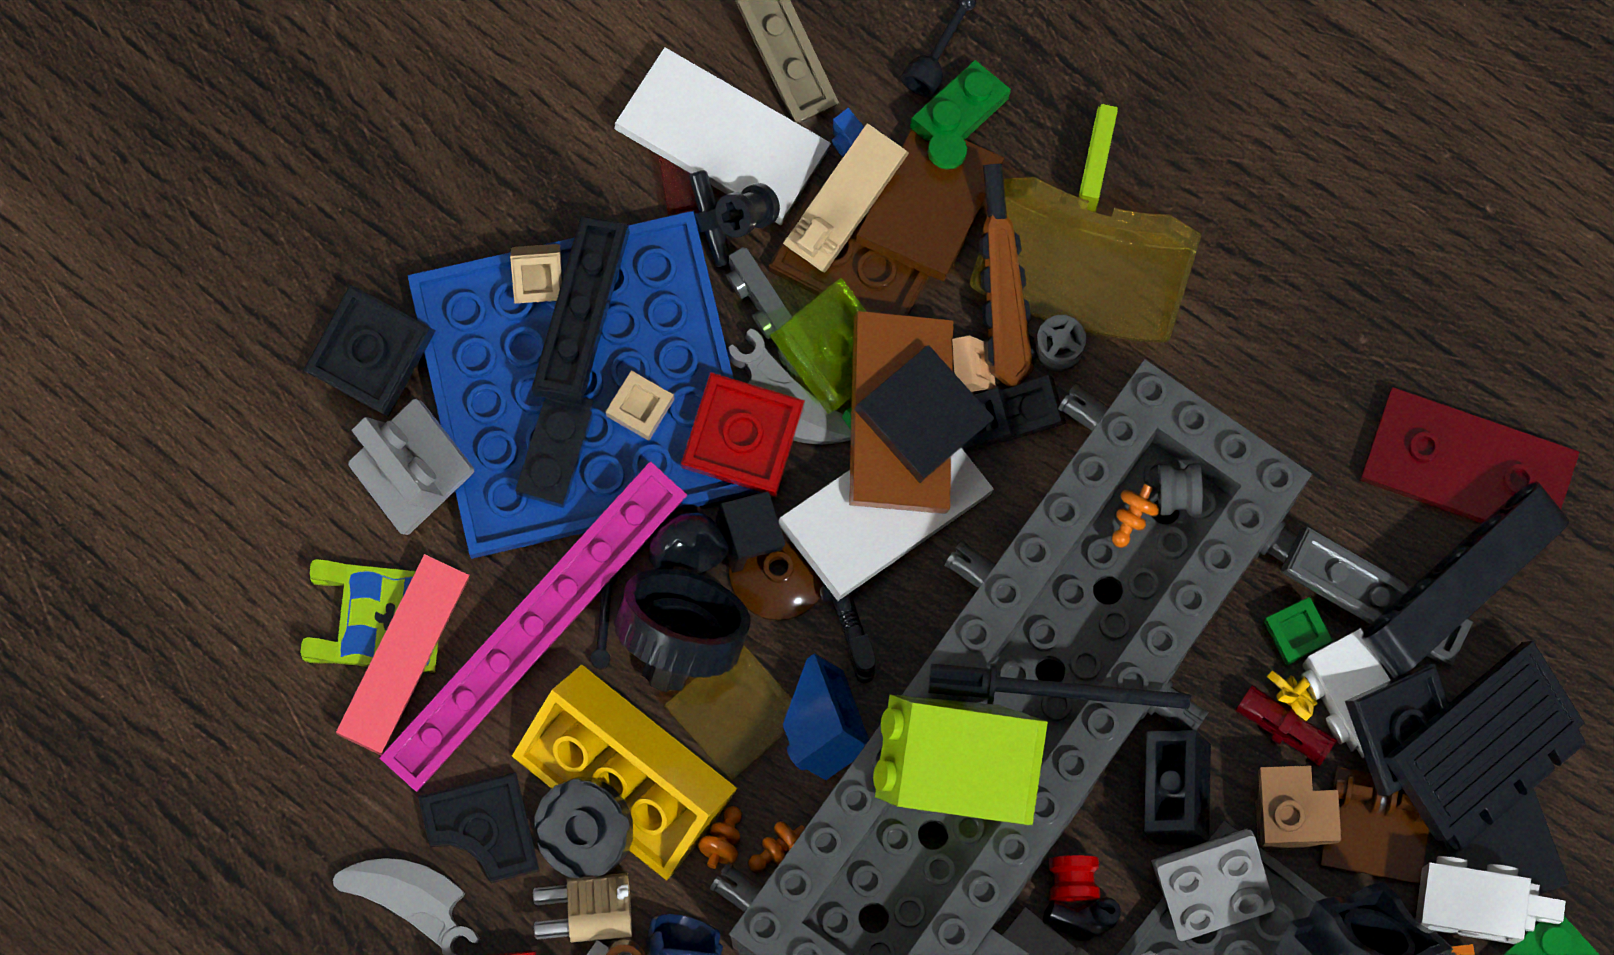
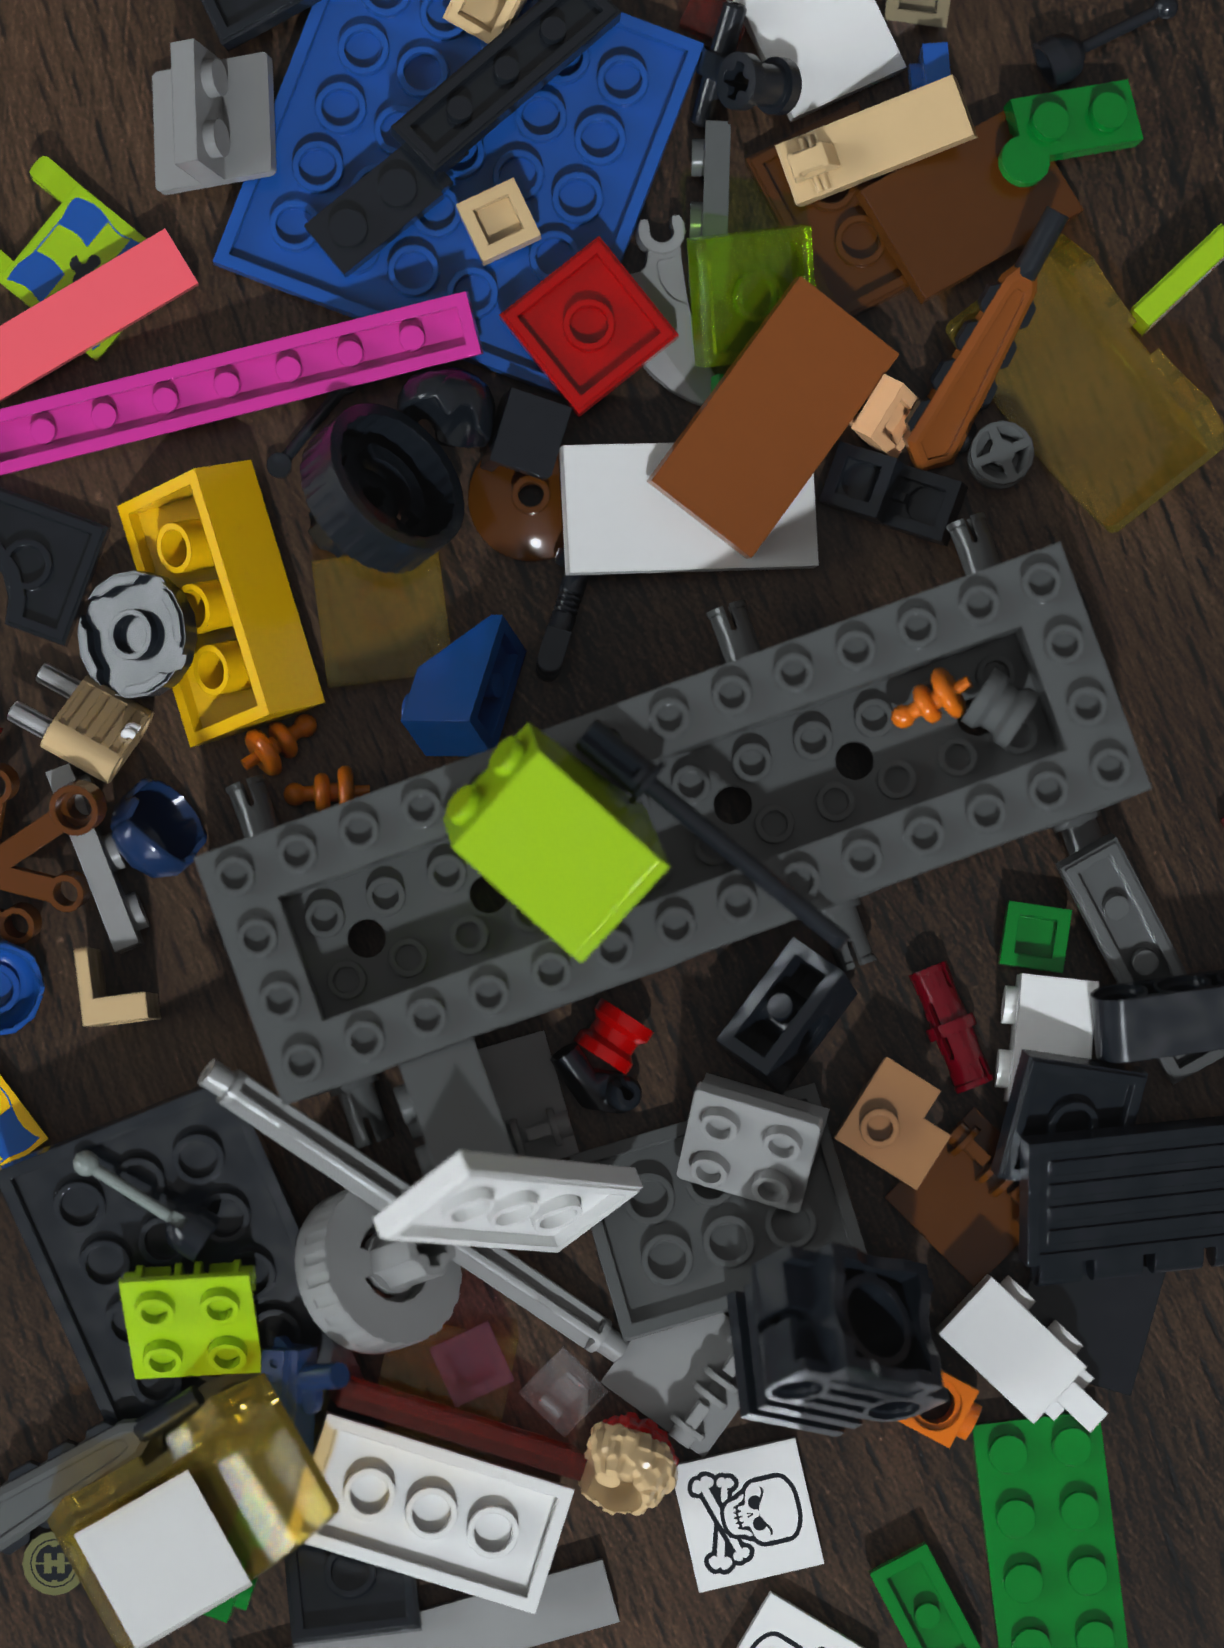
camera: 35 degrees right, 10 degrees up
(924, 413) = (794, 436): black tile -> none
(1294, 694) = (982, 1002): yellow plant -> none

